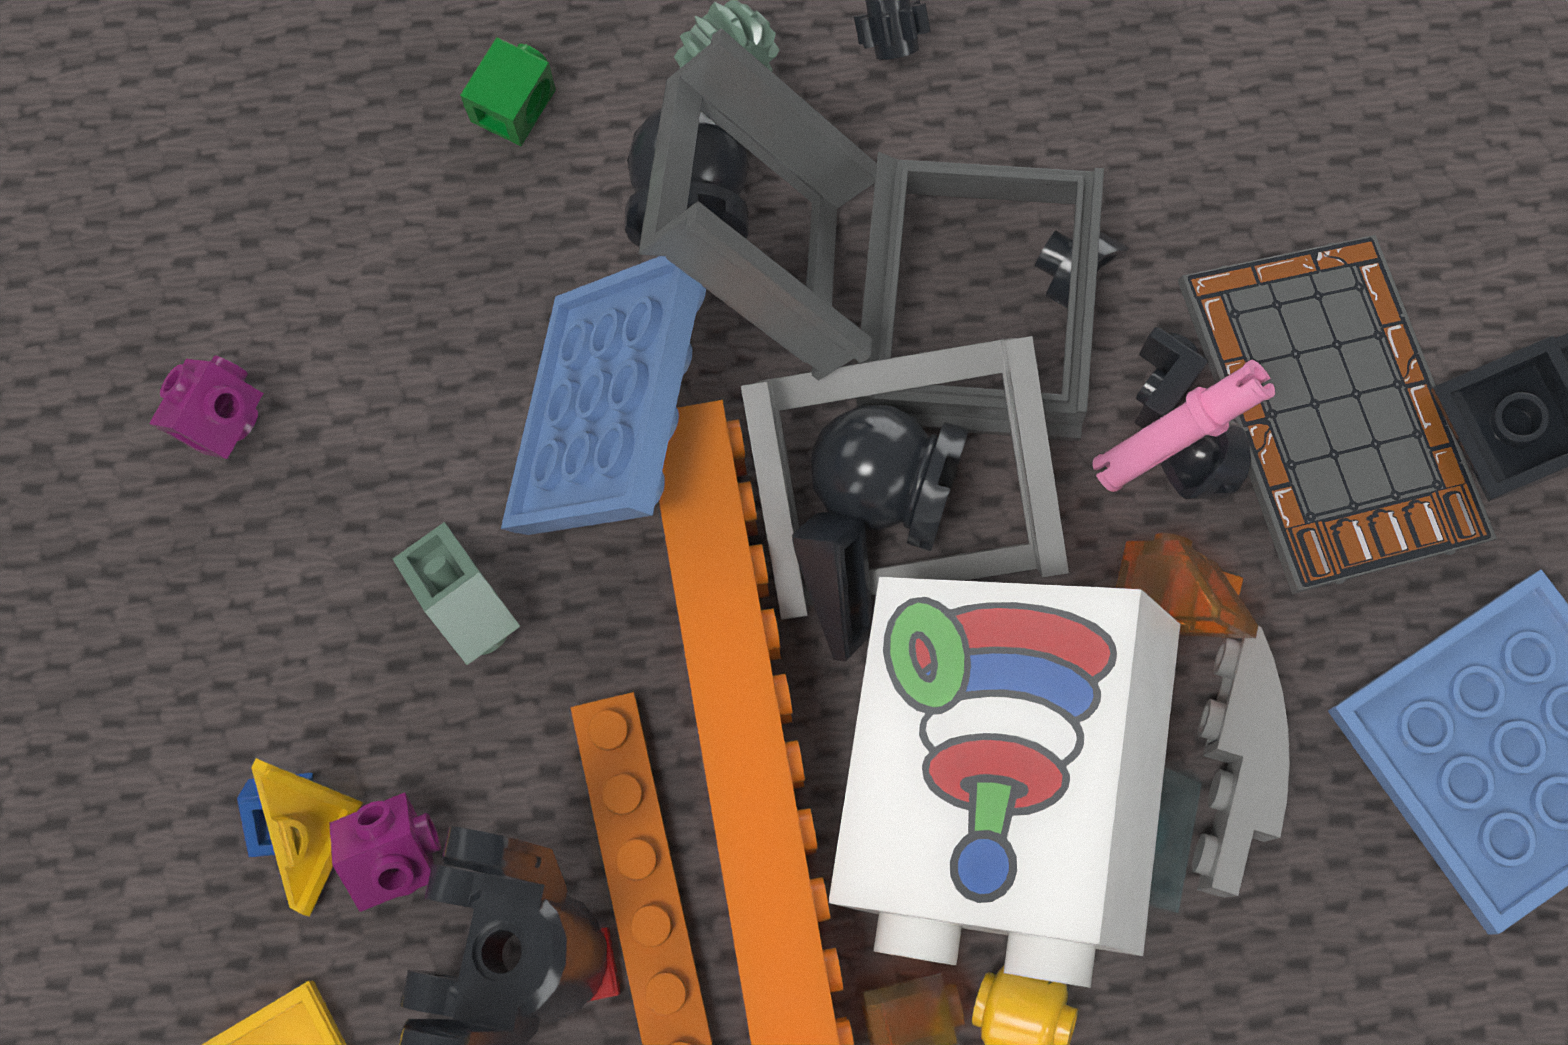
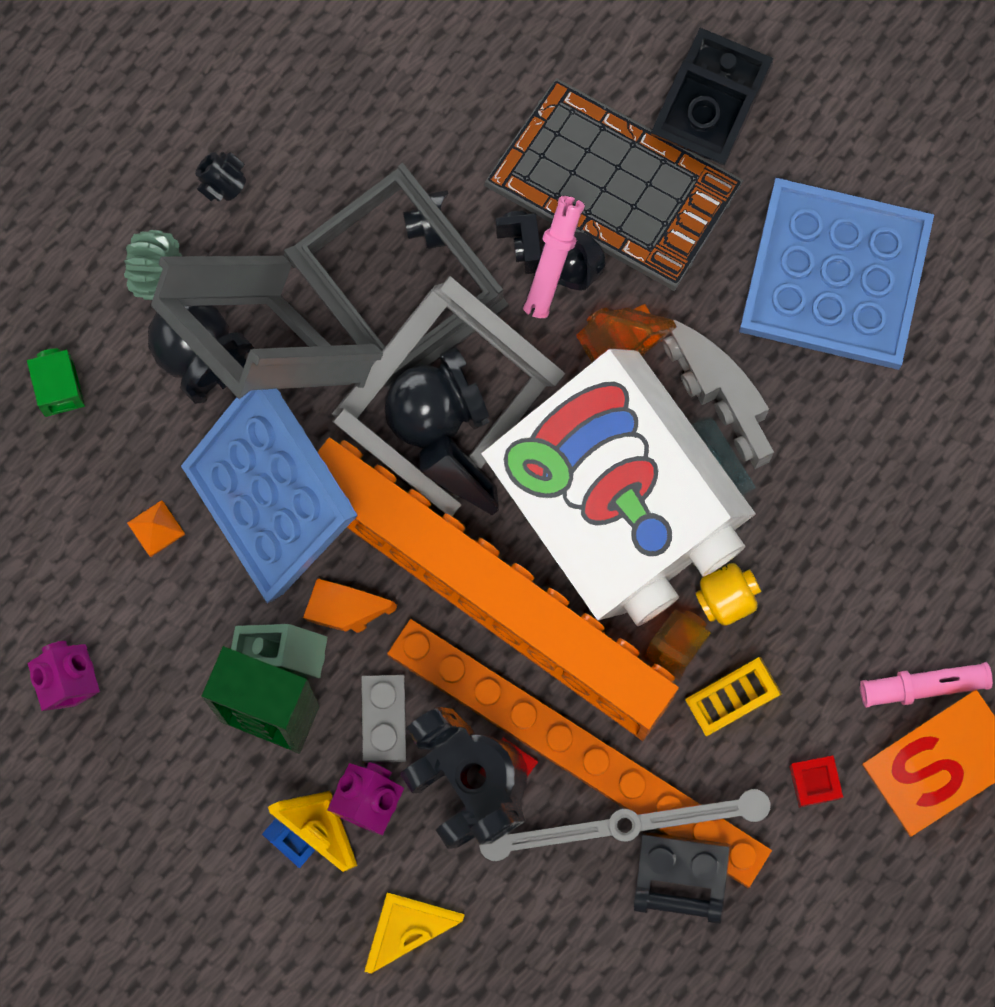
camera: 45 degrees left, 0 degrees up
(349, 627) = (261, 699): none -> dark green brick
(465, 340) = (156, 528): none -> orange slope
(499, 775) = (383, 718): none -> light grey plate
(575, 611) = (344, 607): none -> orange slope

